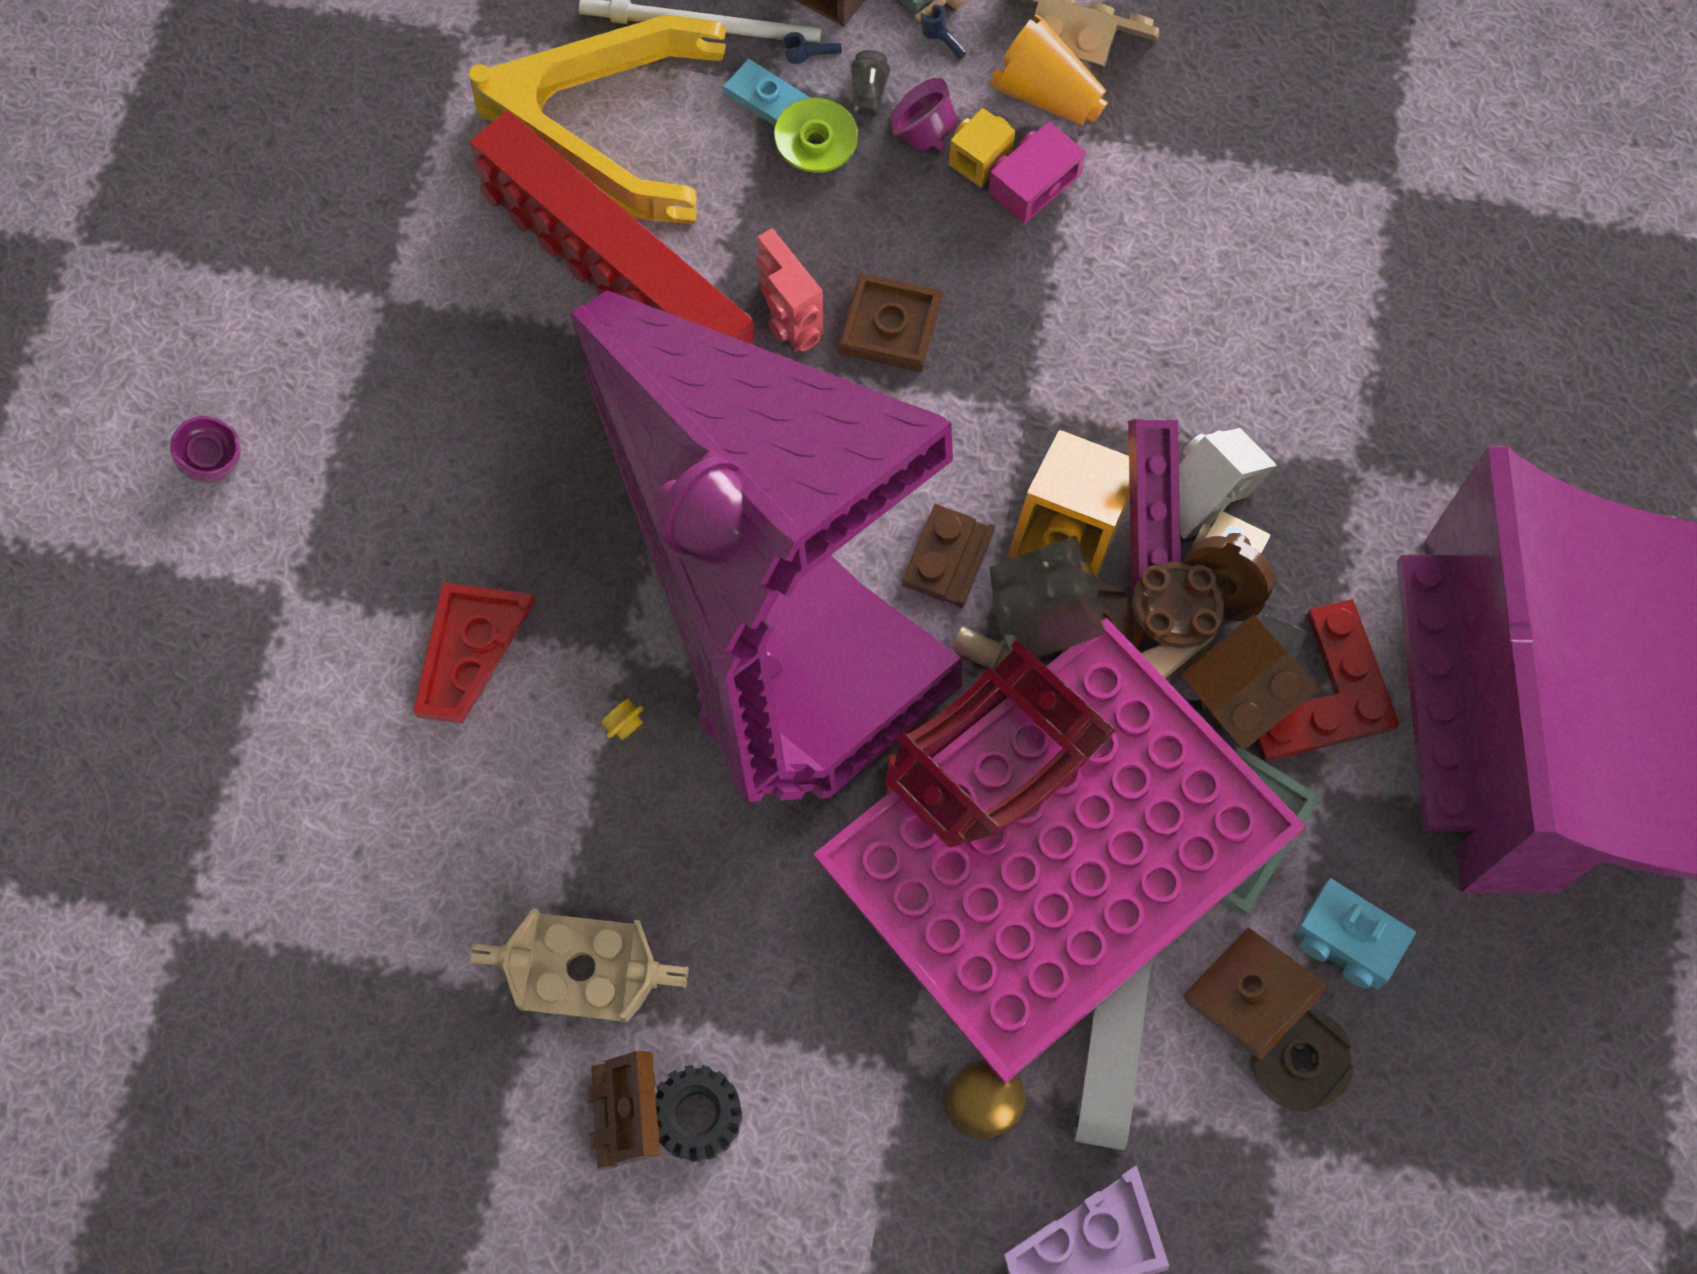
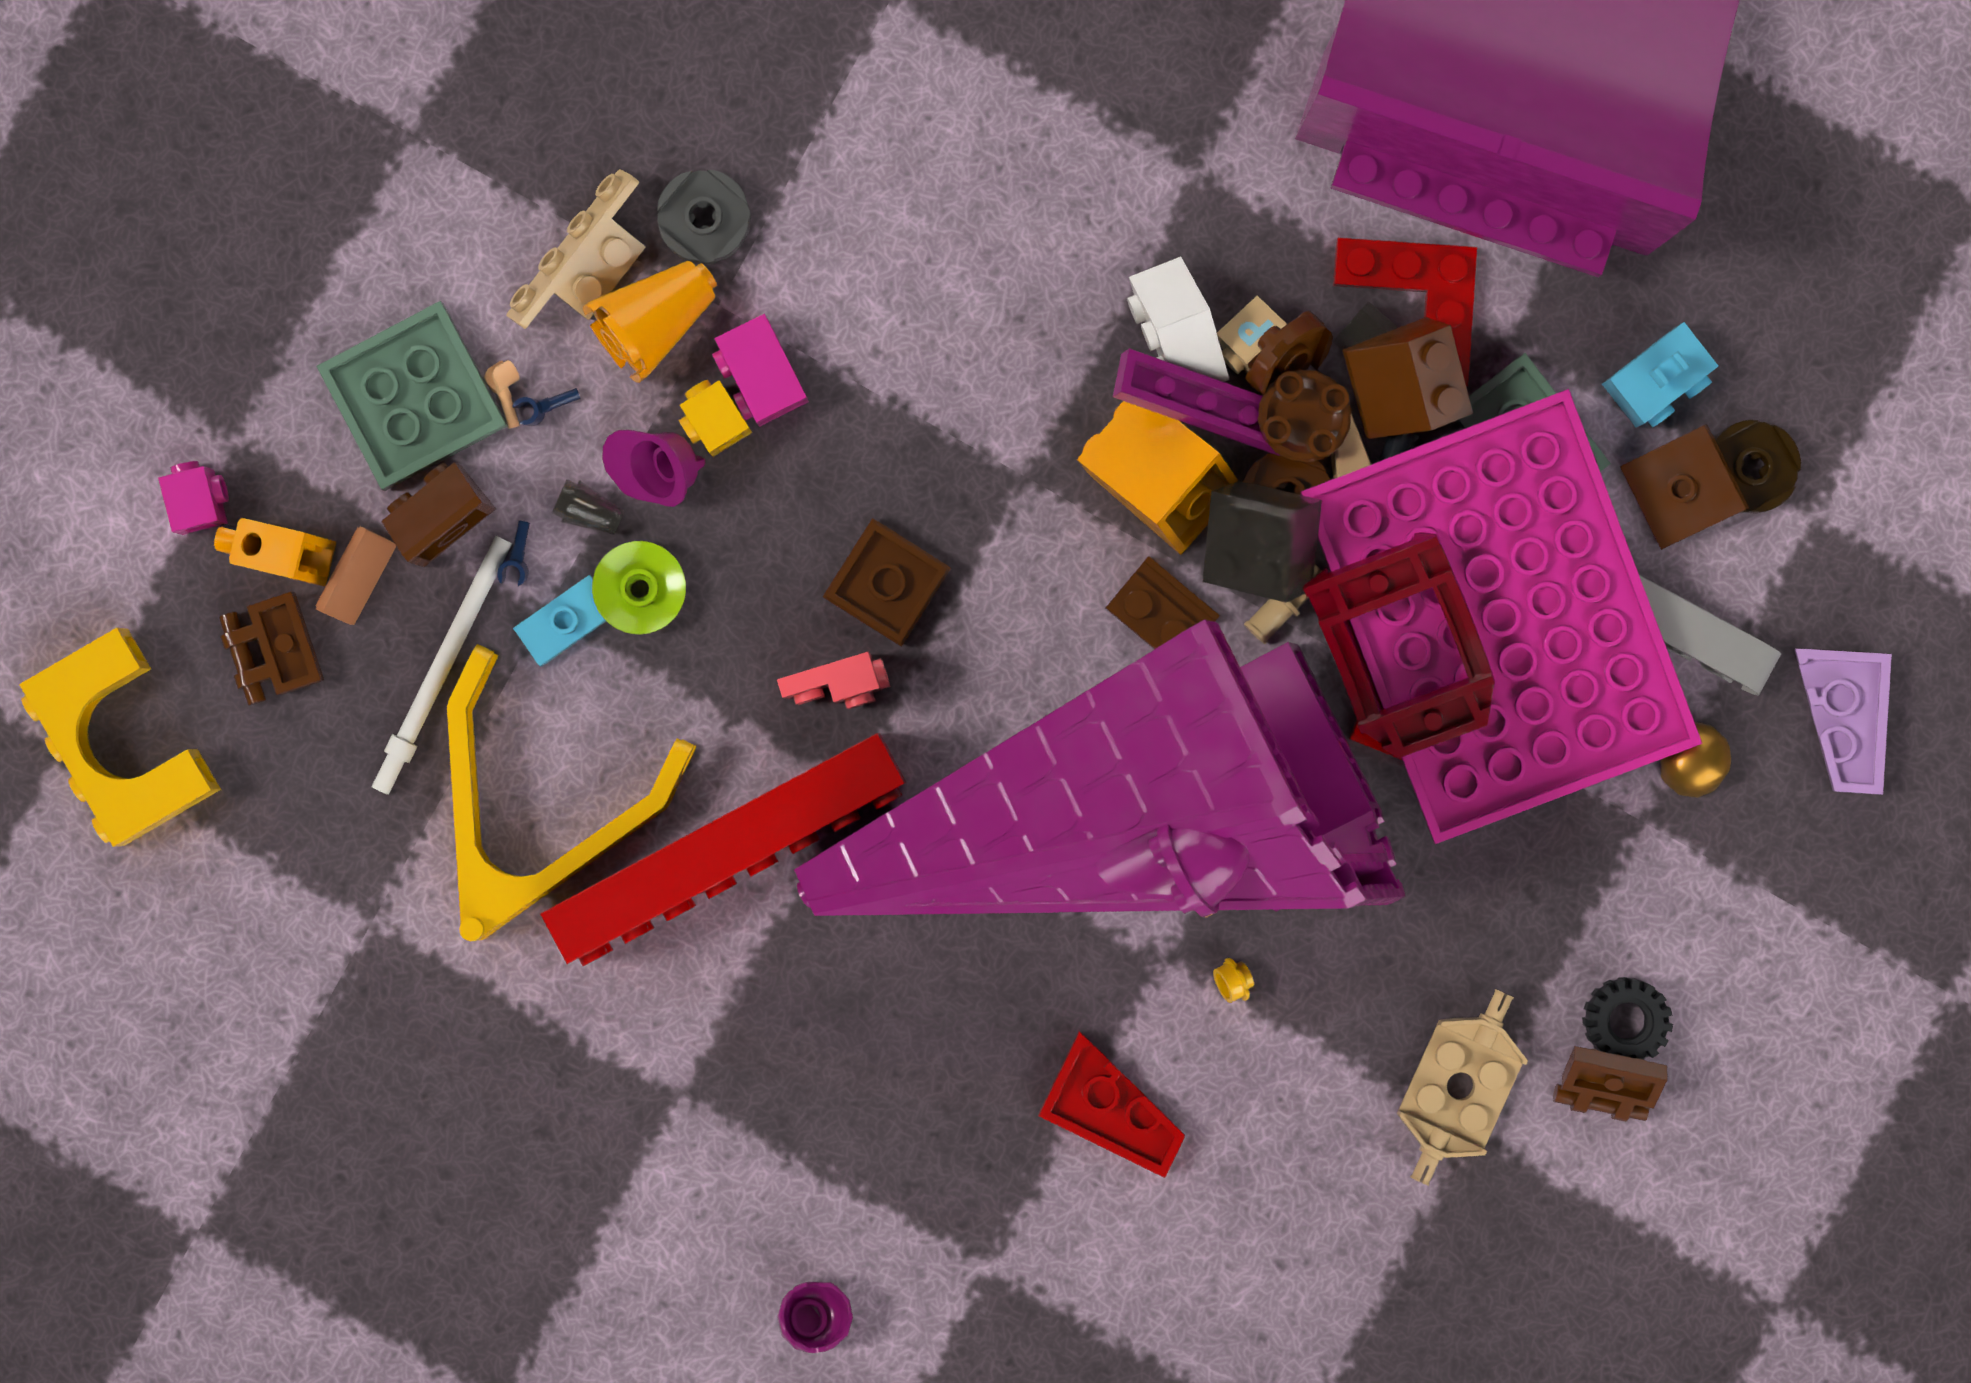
camera: 70 degrees left, 20 degrees up
(1142, 118) = (701, 190): none -> dark grey plate

